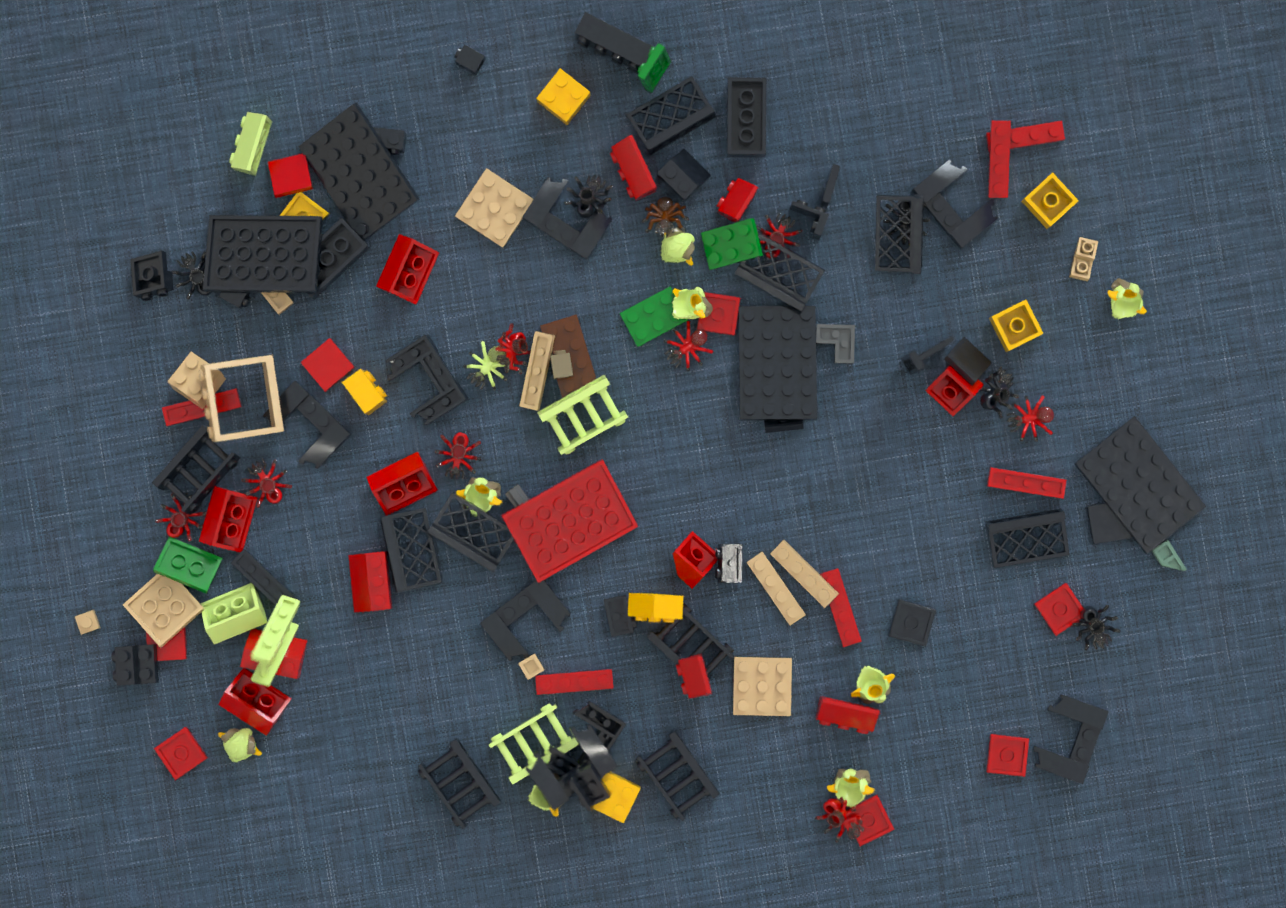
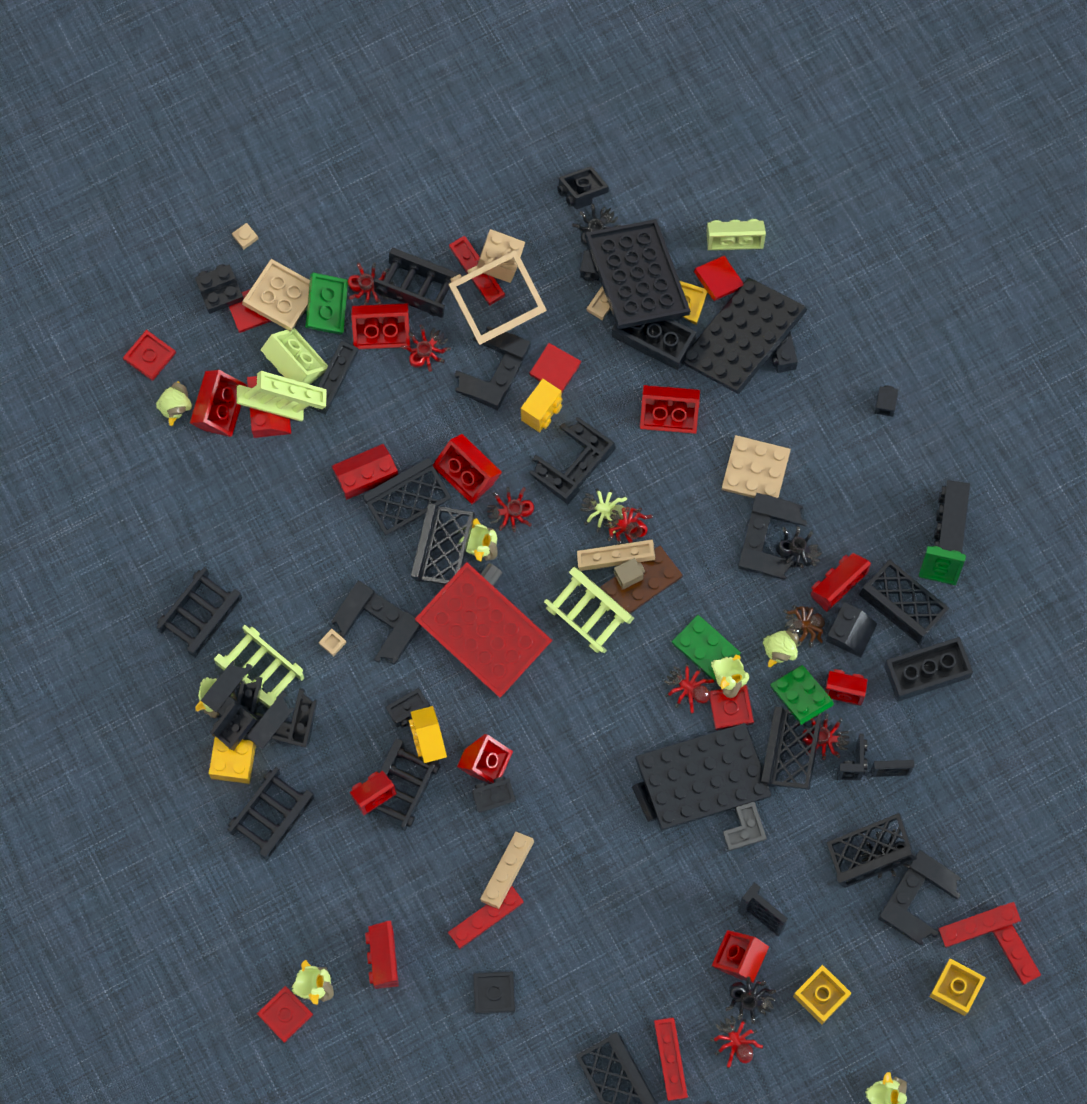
camera: 70 degrees right, 15 degrees down
(563, 96) = (883, 495): yellow brick -> none
(574, 681) = (330, 688): red plate -> none
(762, 686) = (384, 867): tan plate -> none
(776, 588) = (483, 849): tan plate -> none
(838, 817) = (279, 979): animal -> none
(872, 685) = (419, 971): yellowish green hair -> none
(967, 361) = (770, 958): black tile -> none
(1083, 259) = (912, 1042): tan slope -> none

